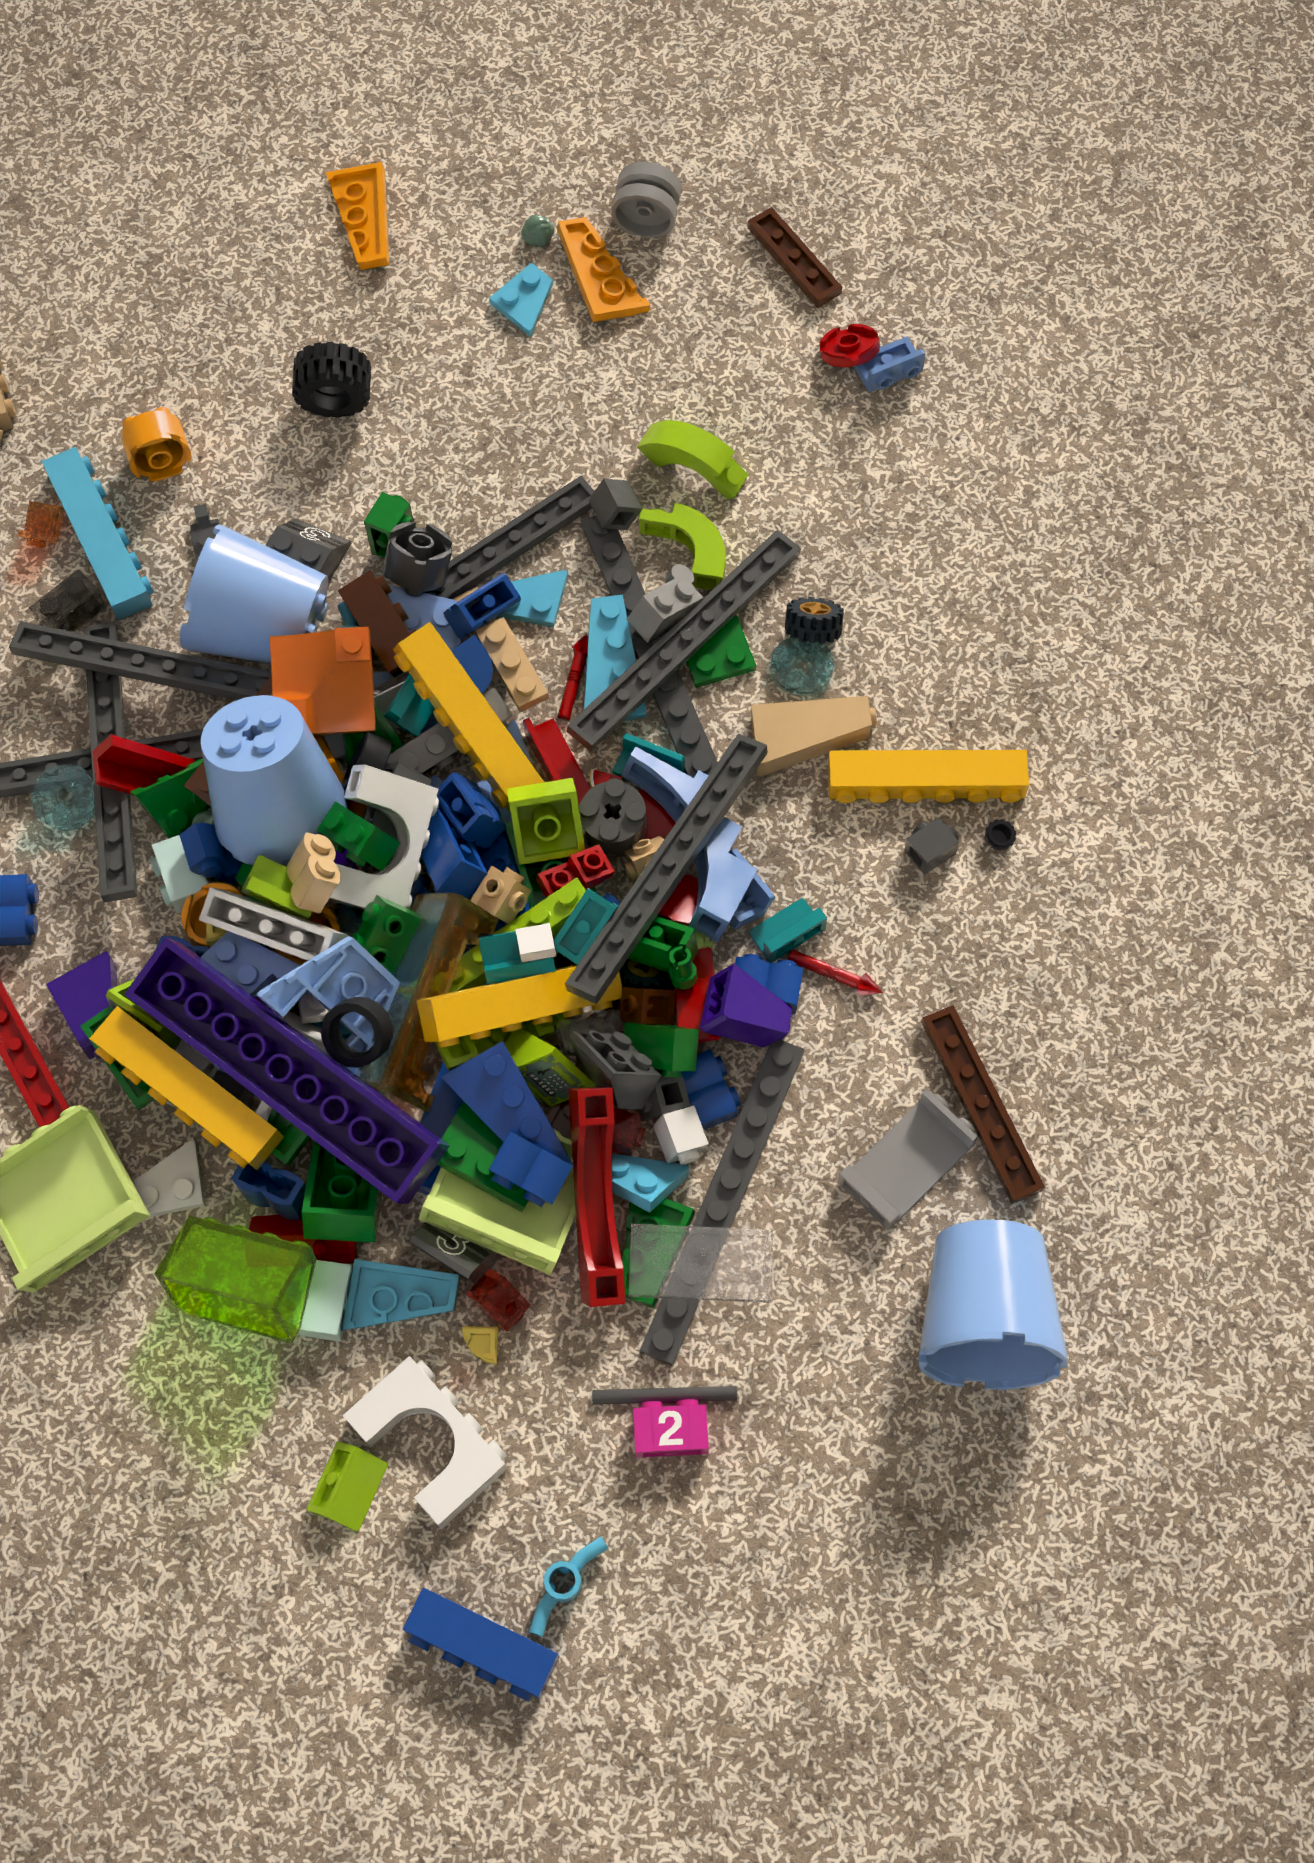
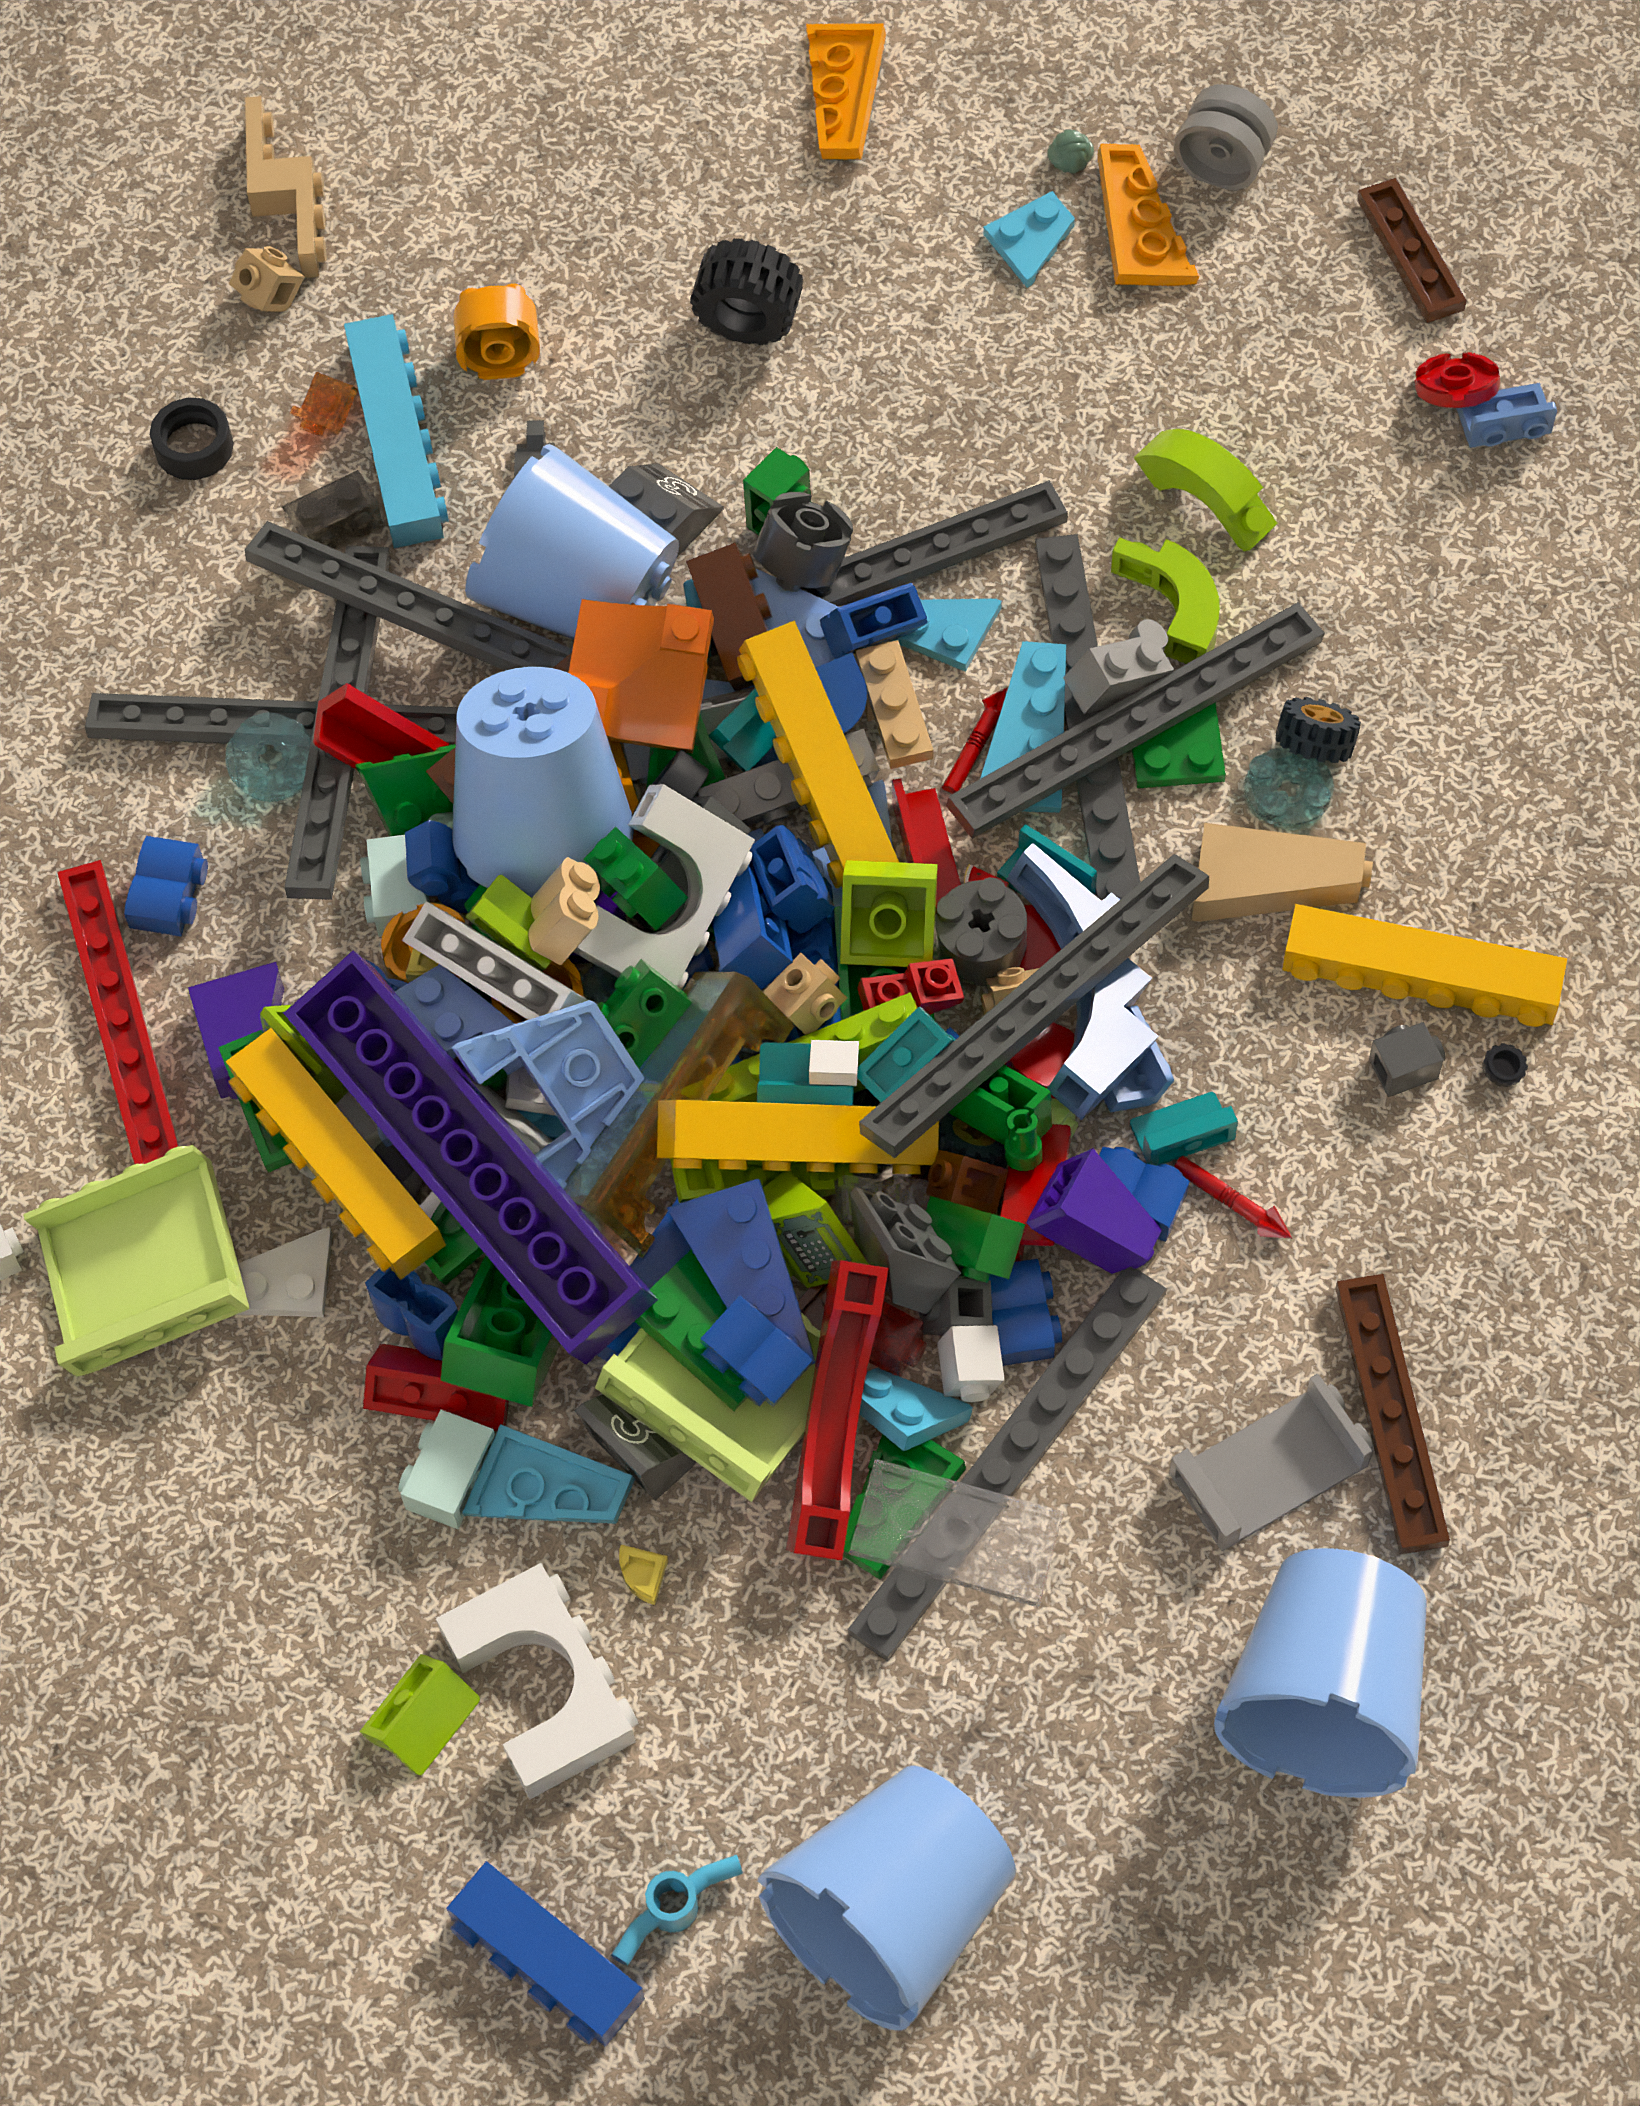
camera: 15 degrees right, 5 degrees down
(239, 1277) = (343, 1412): clear neon green windscreen -> none
(339, 1049) = (539, 1131): black tyre -> none
(498, 1300) = (676, 1519): clear red brick -> none
(615, 504) = (1085, 525): dark grey brick -> none
(664, 1395) = (867, 1695): dark grey bar -> none
(670, 1429) = (862, 1738): dark pink brick -> none
(721, 1543) = (890, 1893): none -> light blue cone

